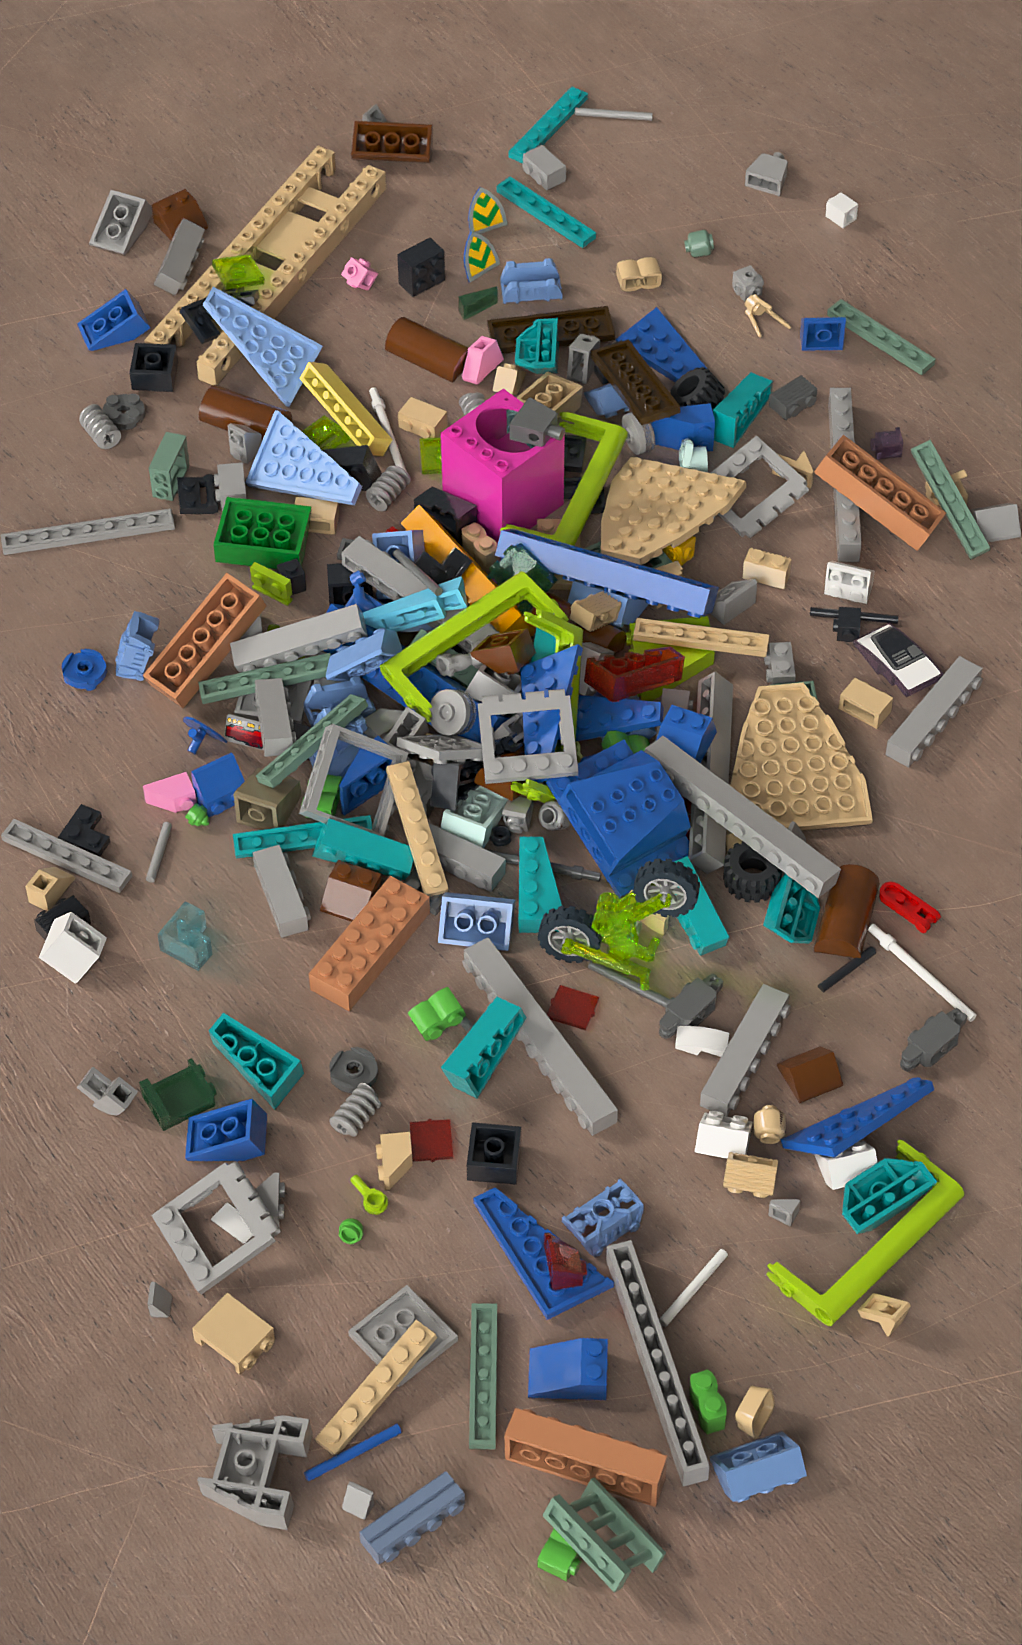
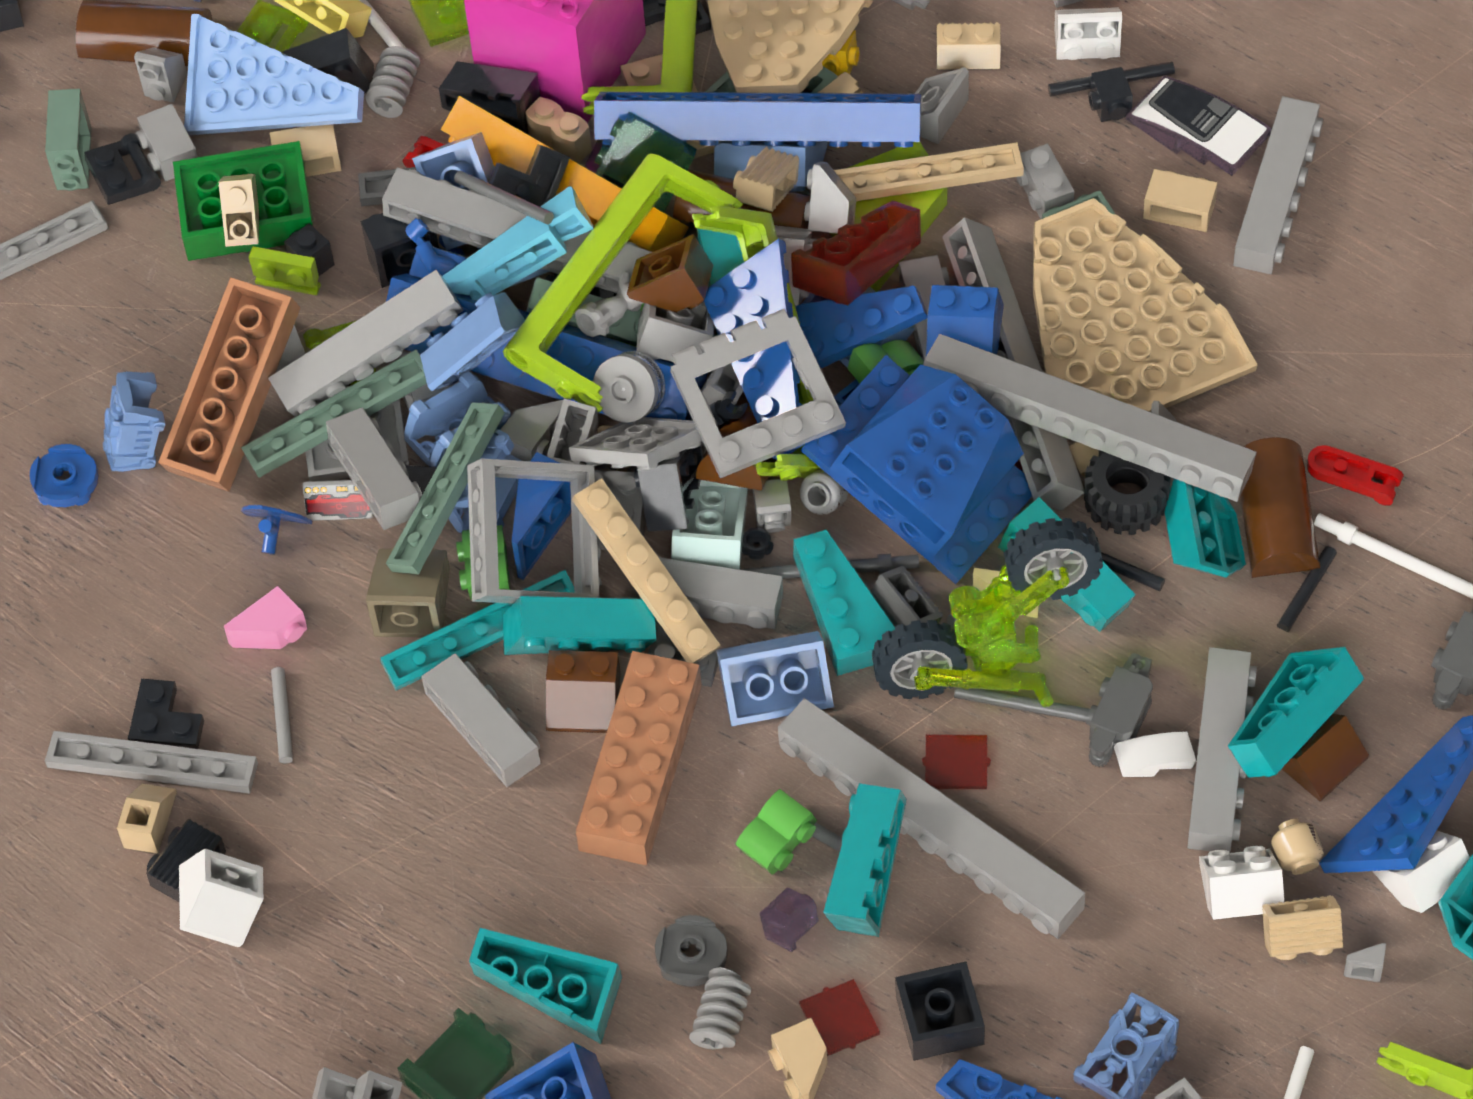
camera: 15 degrees left, 5 degrees up
(184, 938) = (371, 834): clear light blue brick -> none
(197, 816) = (317, 644): bright green plate -> none
(217, 783) = (332, 592): blue slope -> none
(254, 536) = (239, 209): none -> tan slope
(422, 1068) = (788, 918): none -> clear purple brick
(575, 892) = (903, 598): none -> dark grey brick
(630, 634) = (830, 201): none -> light grey slope
(733, 922) = (1133, 572): none -> black bar
(799, 1037) = (1293, 708): none -> teal wedge

